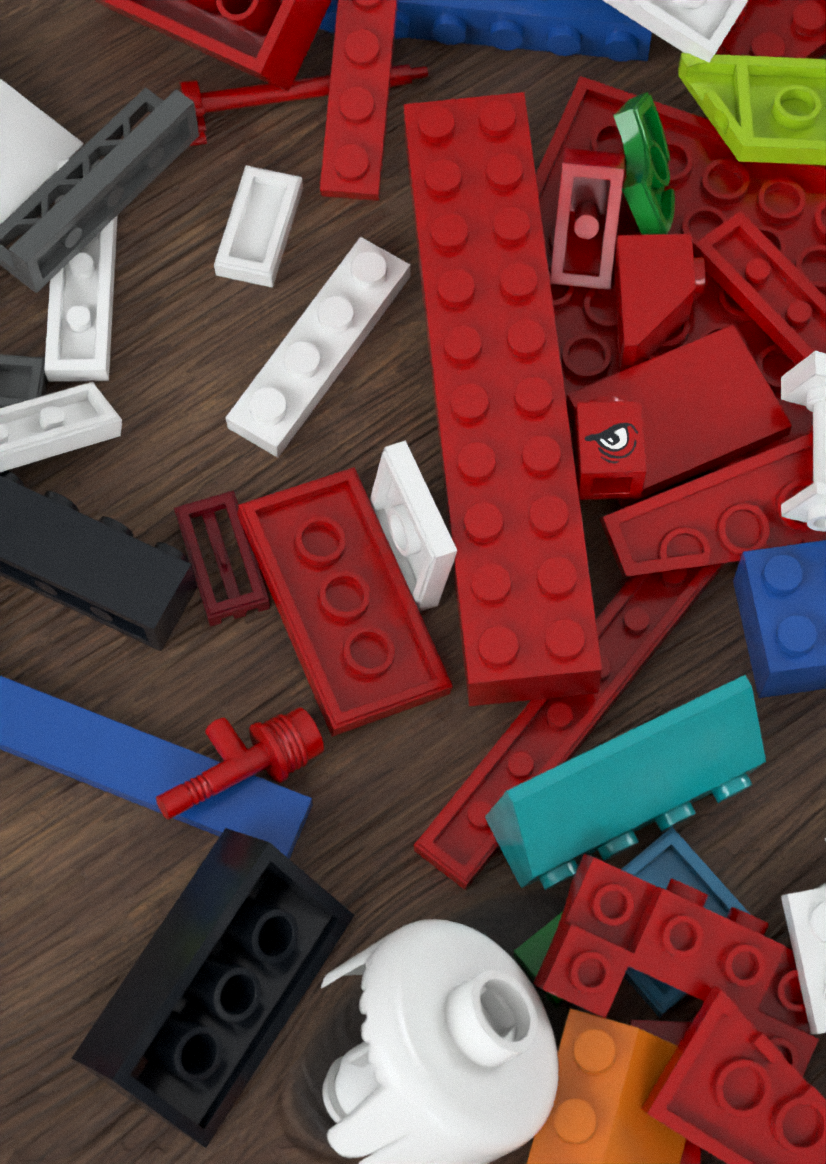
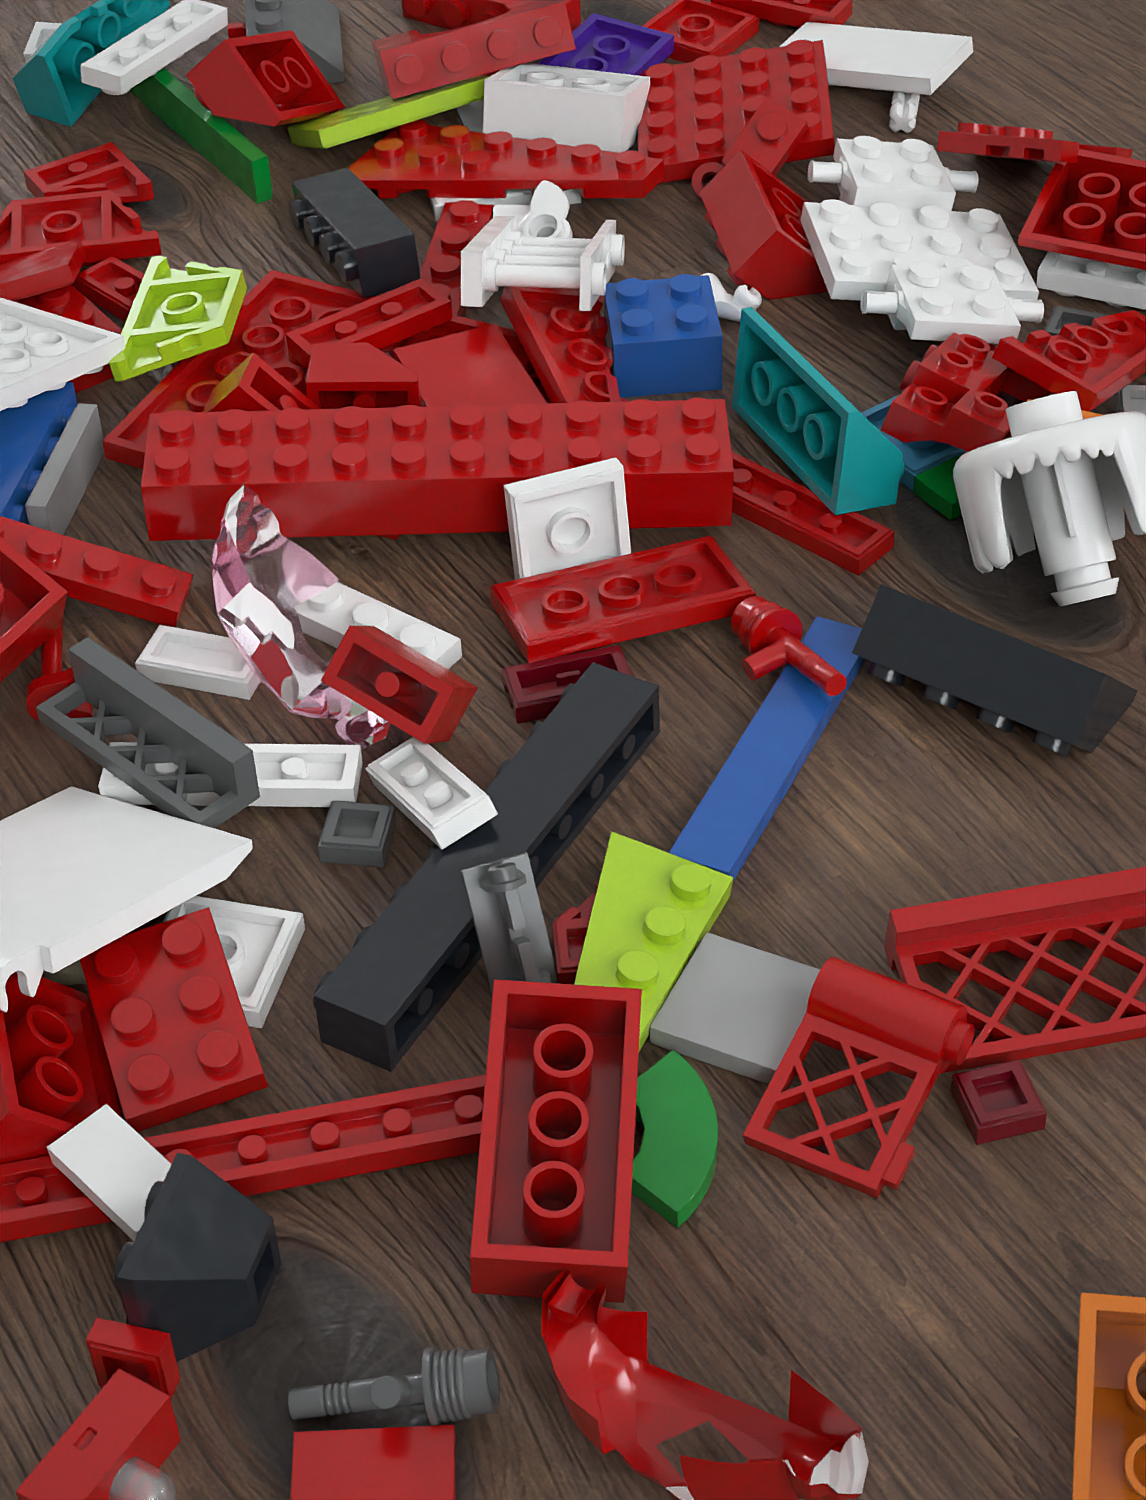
camera: 85 degrees left, 25 degrees down
(164, 388) = (399, 684): none -> red brick
(237, 284) = (255, 588): none -> clear pink animal
(524, 55) = (67, 471): none -> light grey tile
(609, 448) = (514, 380): red brick -> none
(646, 165) = (195, 379): green tile -> none

